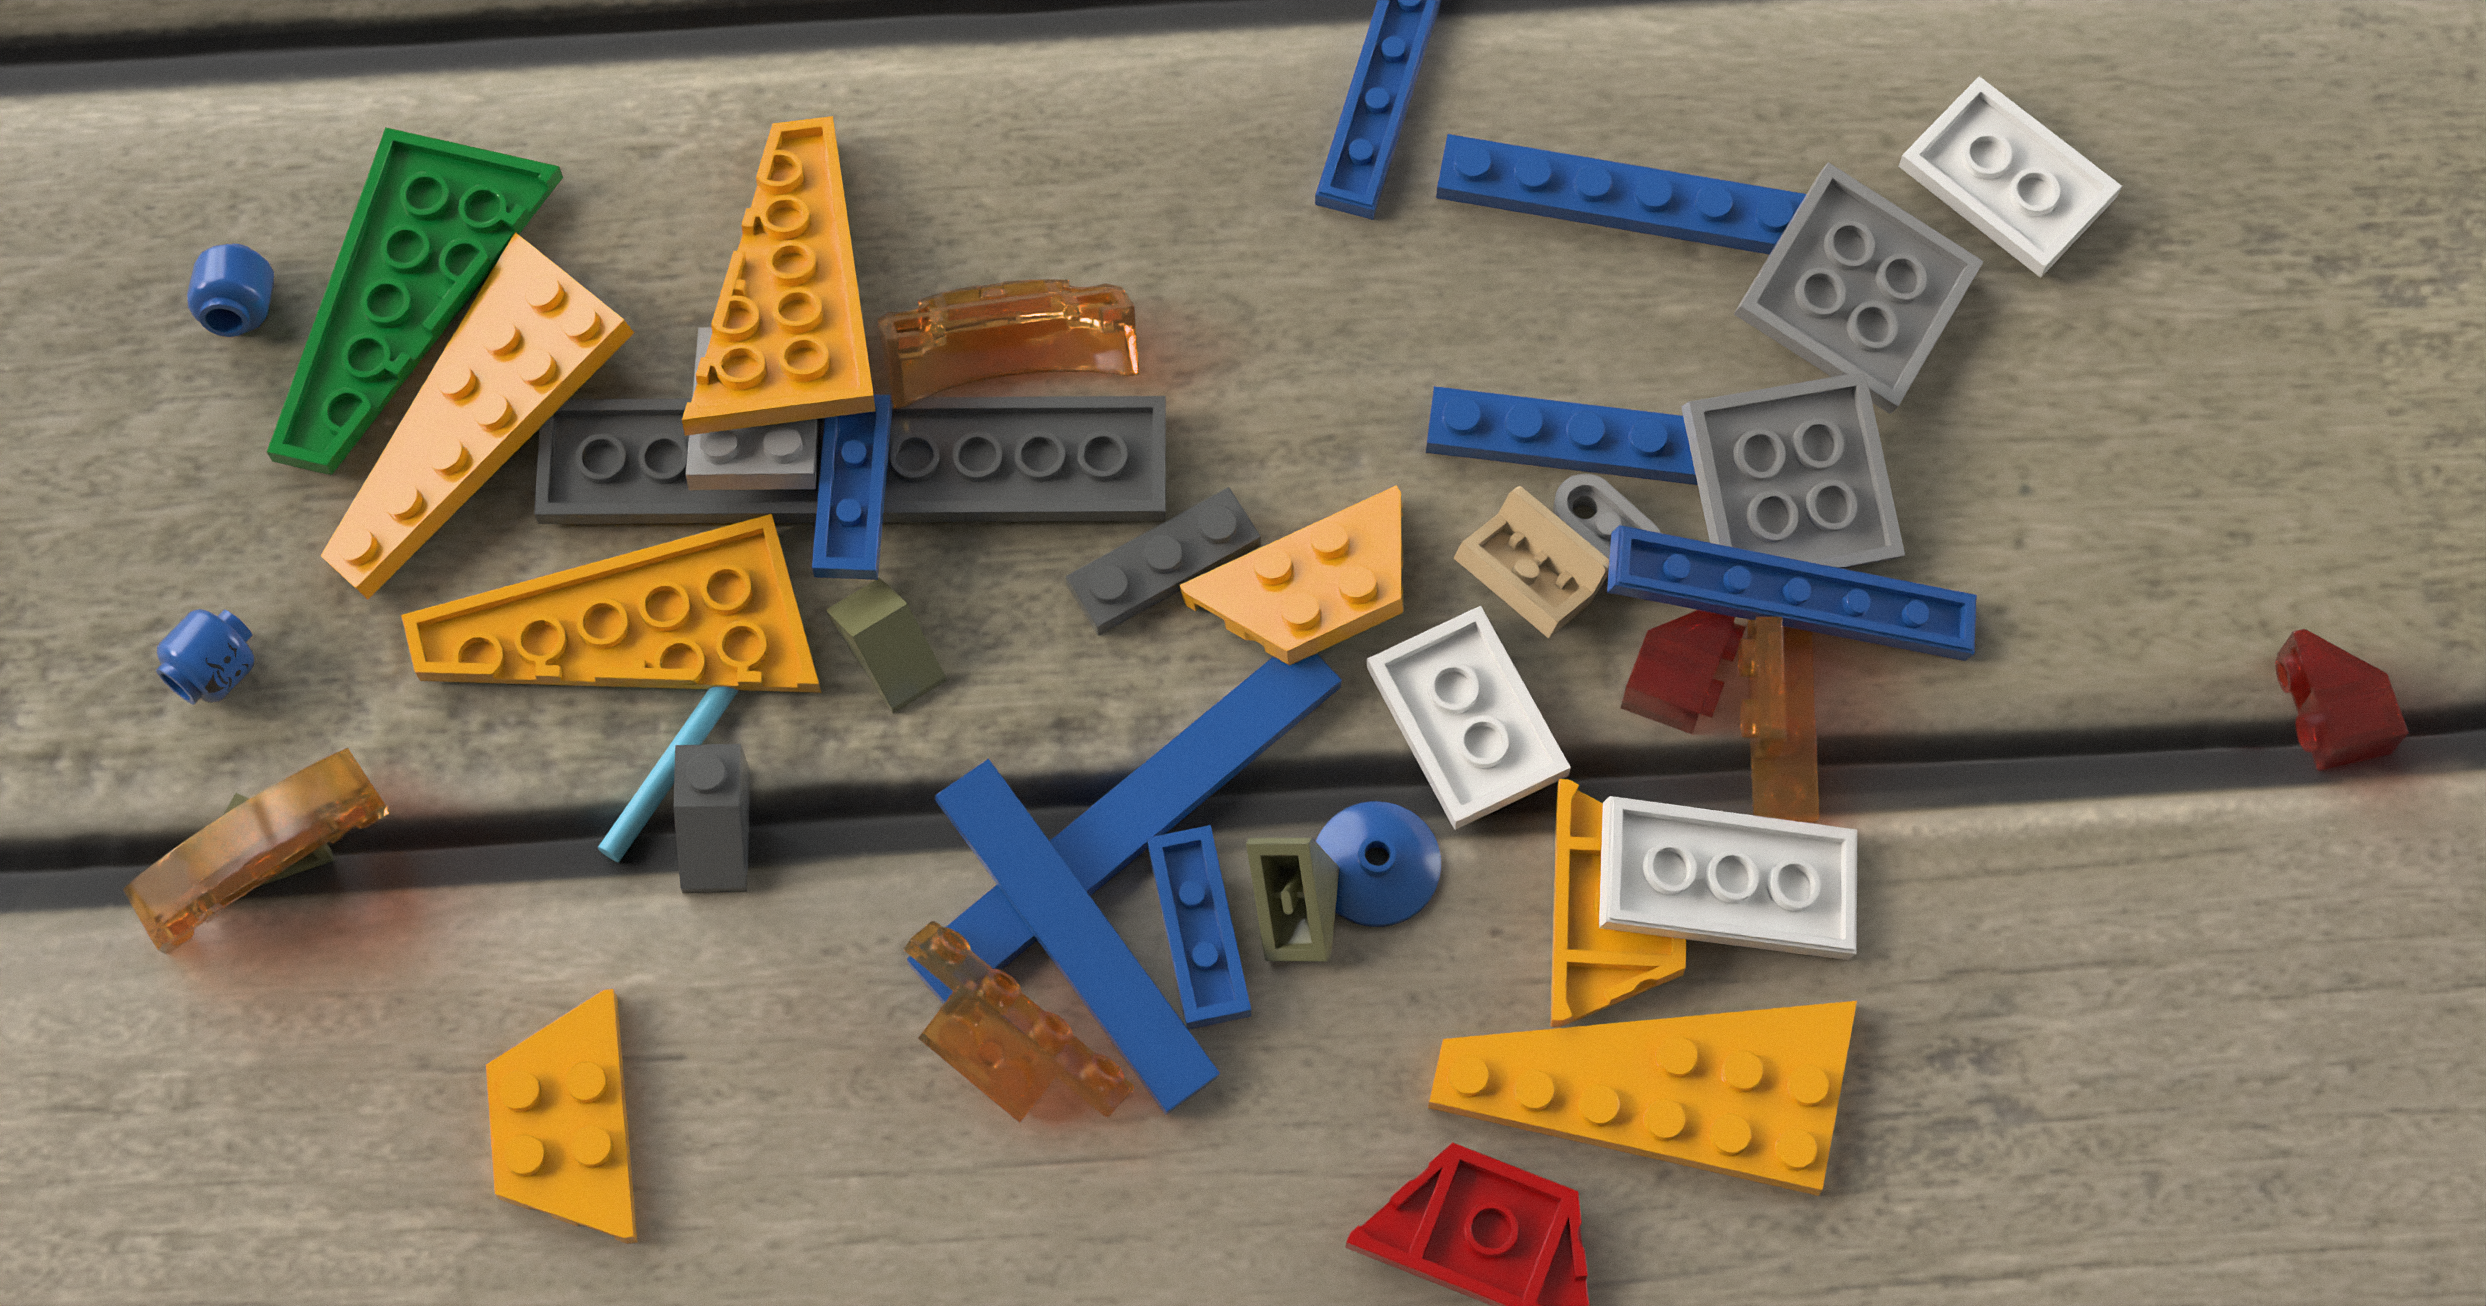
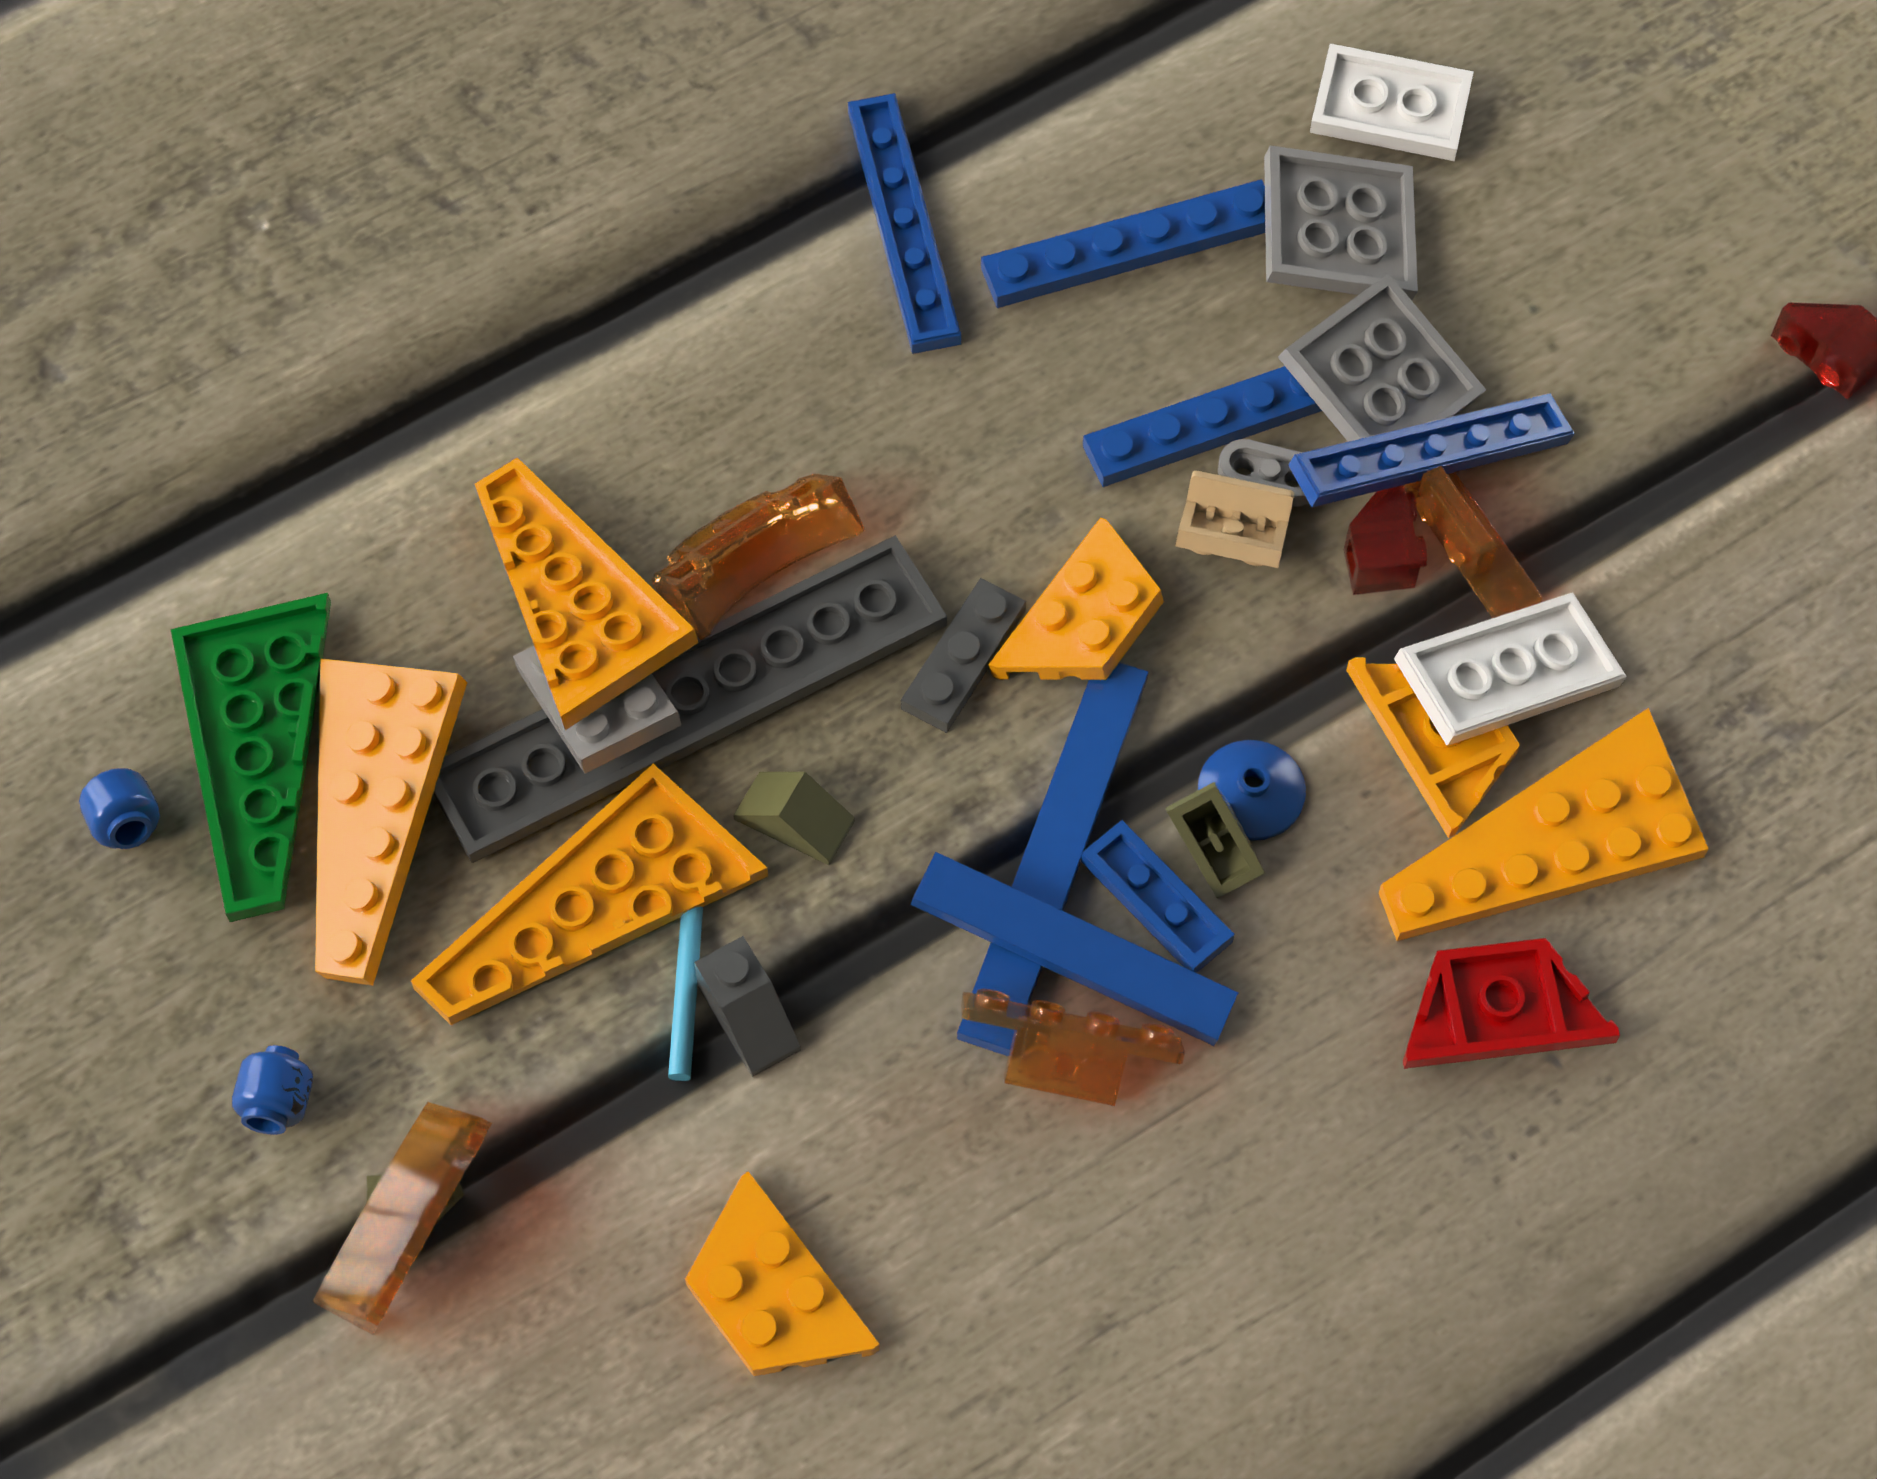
camera: 30 degrees left, 5 degrees down
(852, 493) = (711, 716): blue plate -> none
(1468, 717) = (1255, 652): white plate -> none

